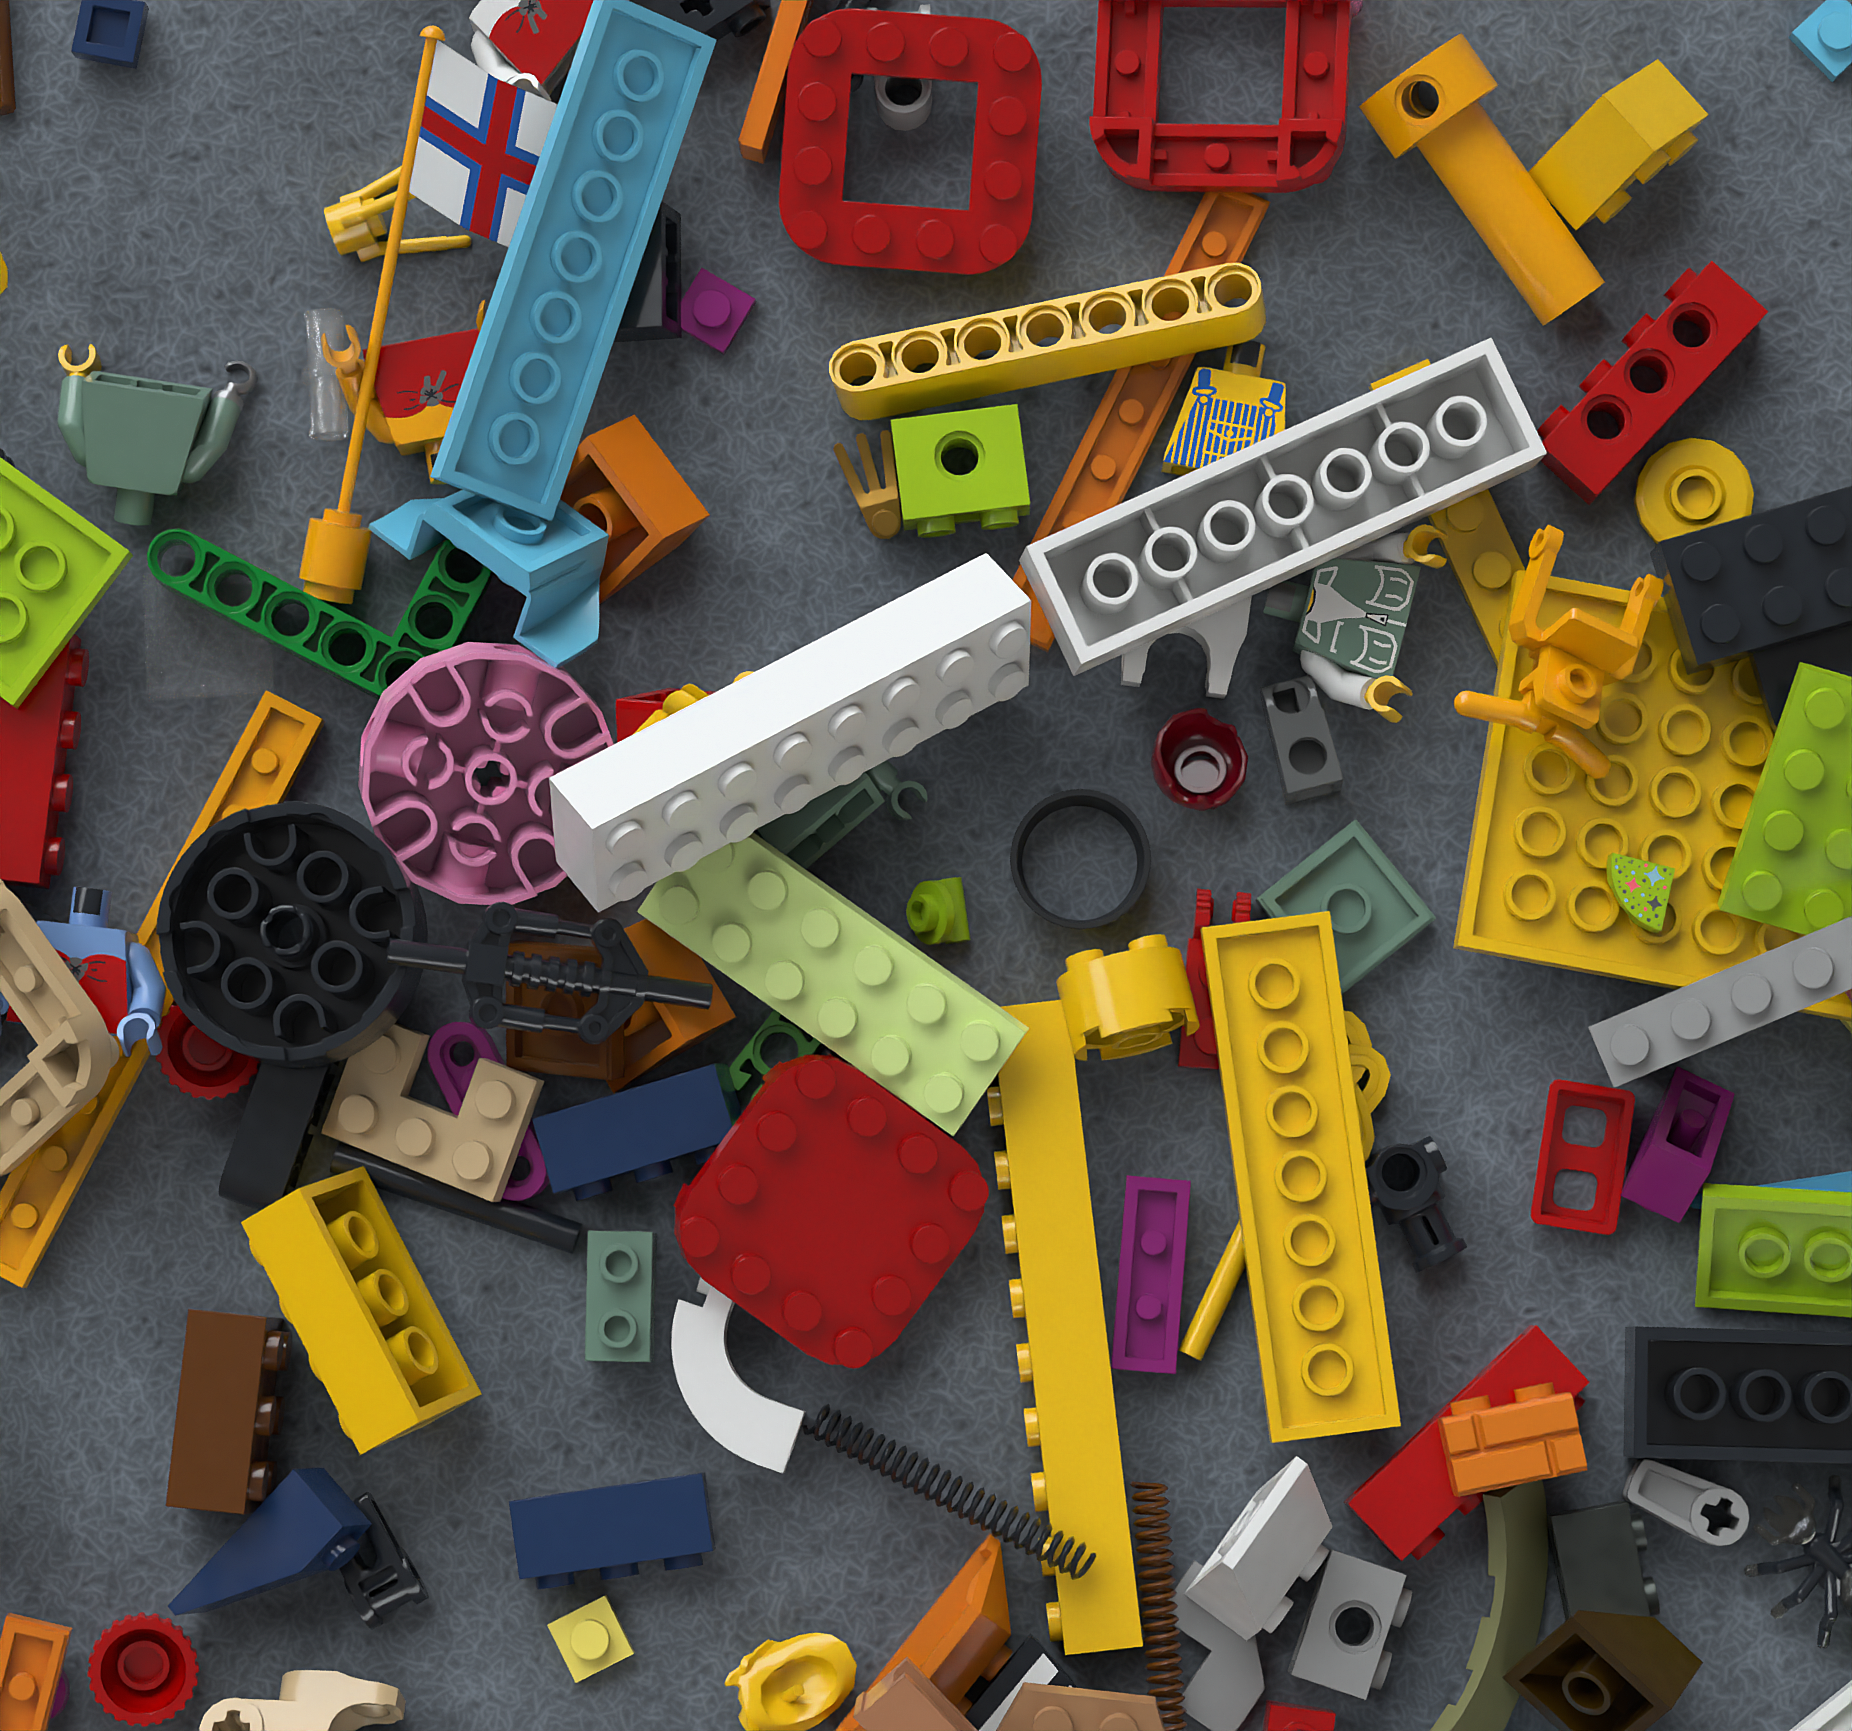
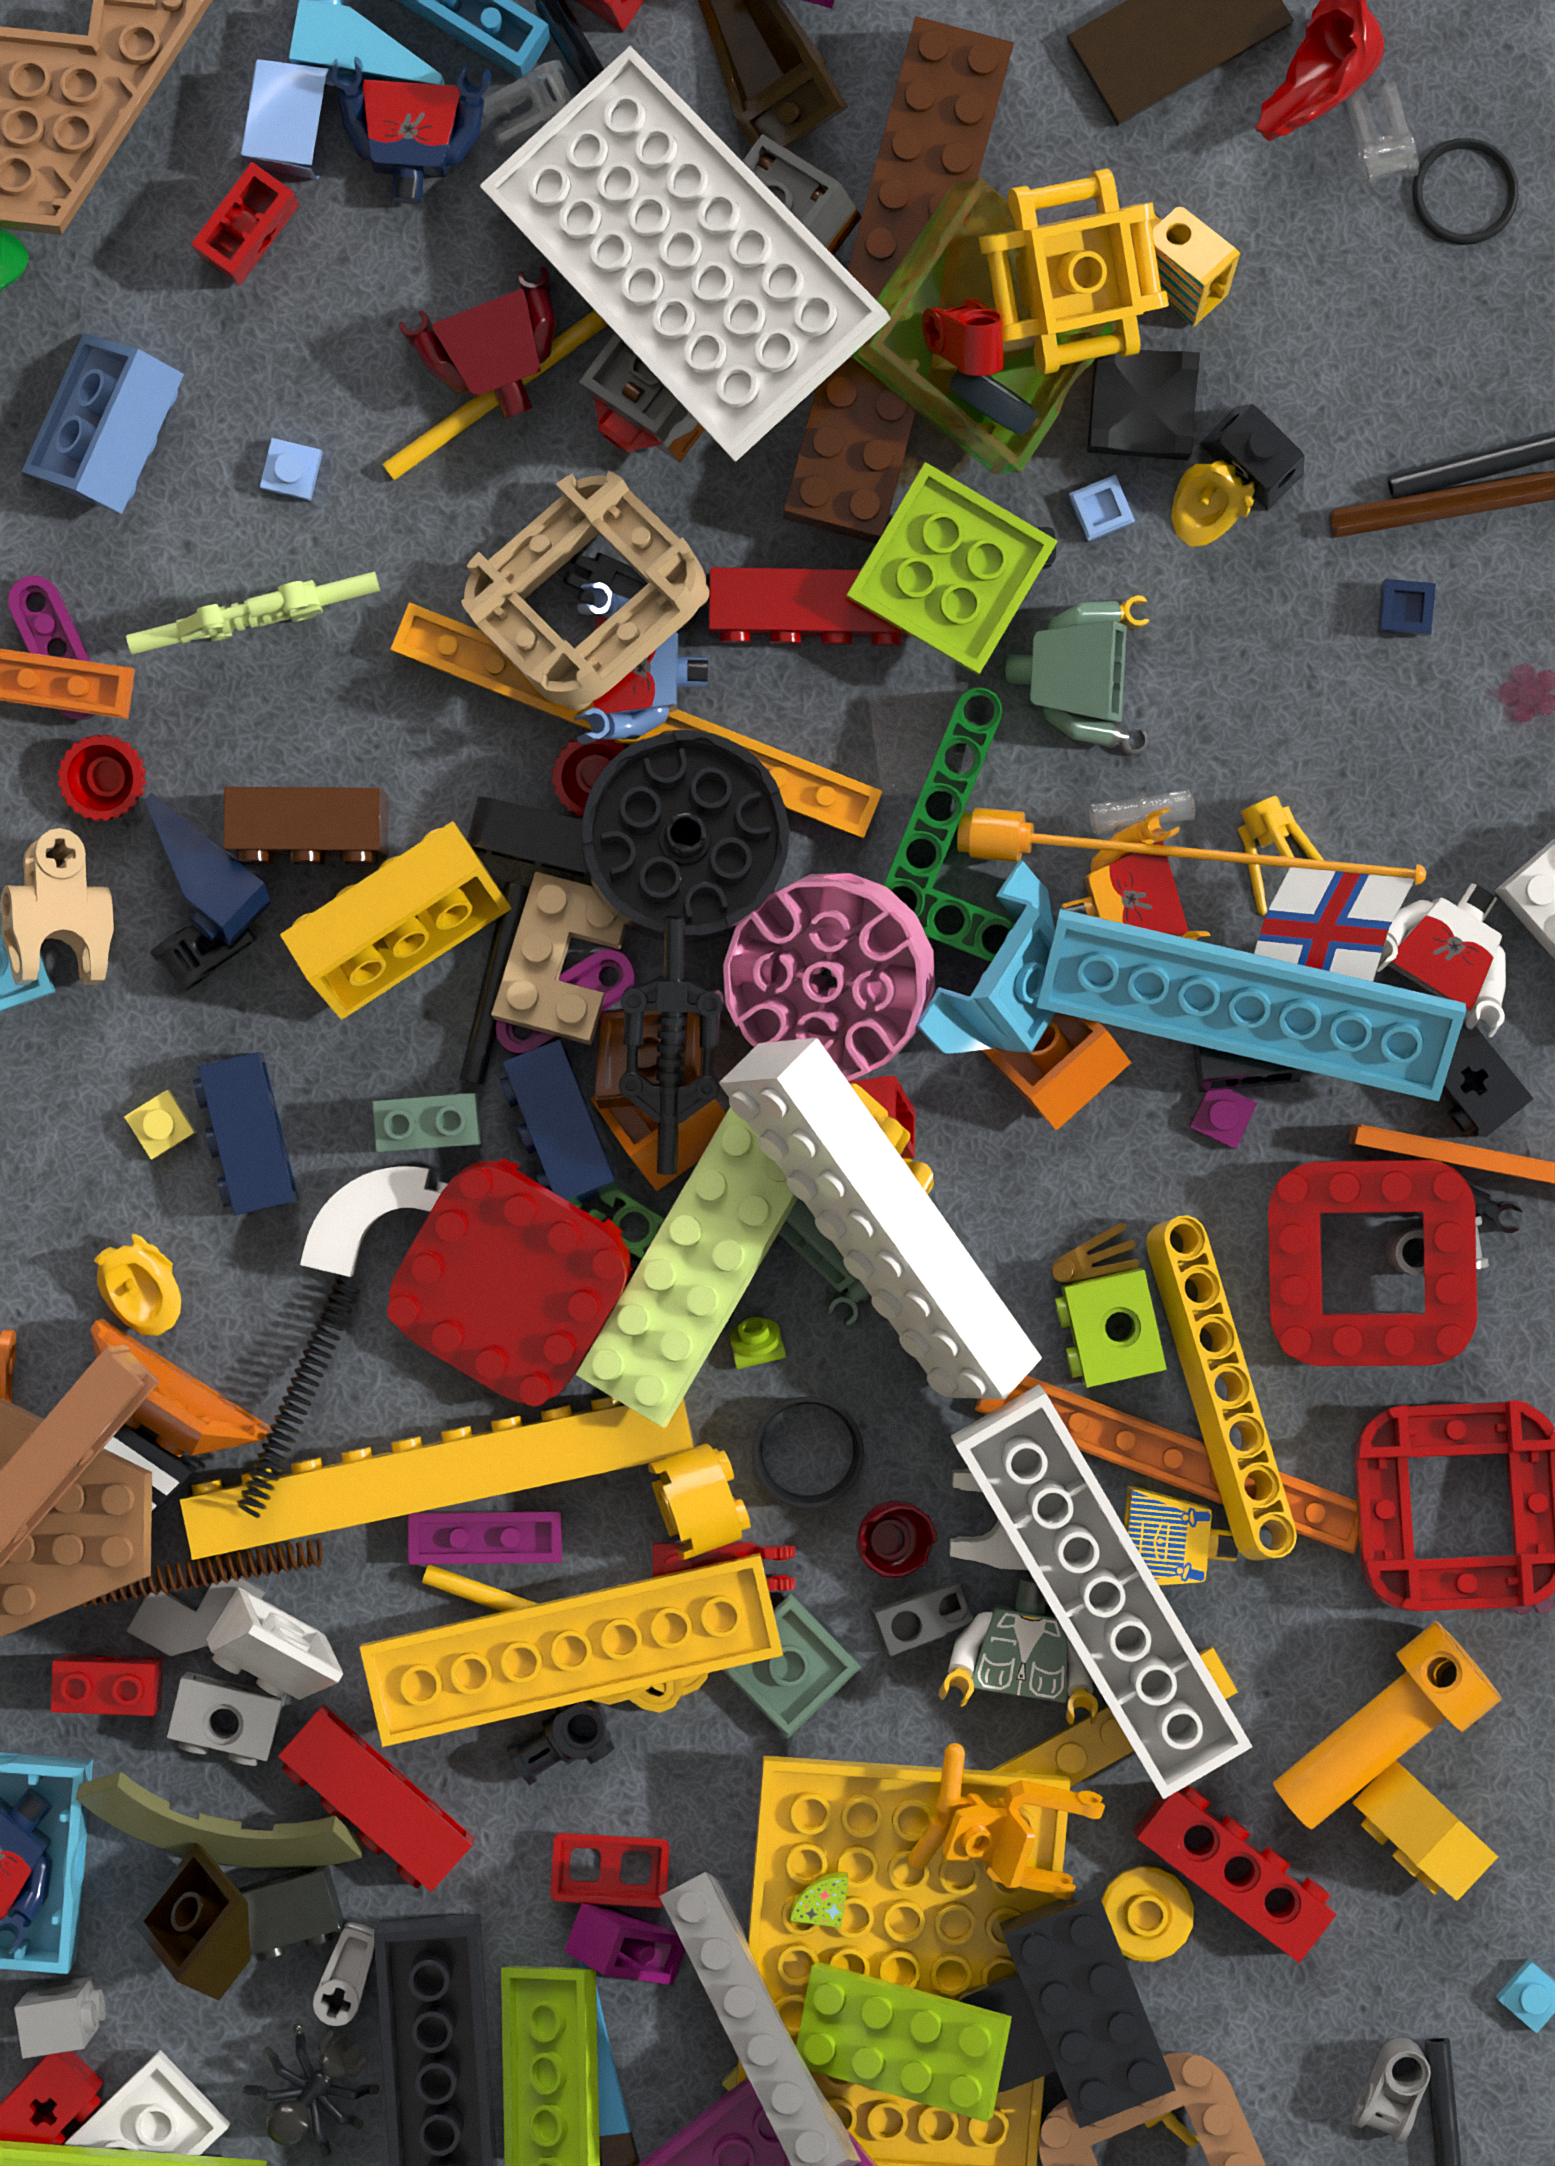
camera: 75 degrees right, 5 degrees up
(1512, 1441) = (376, 1836): orange brick -> none

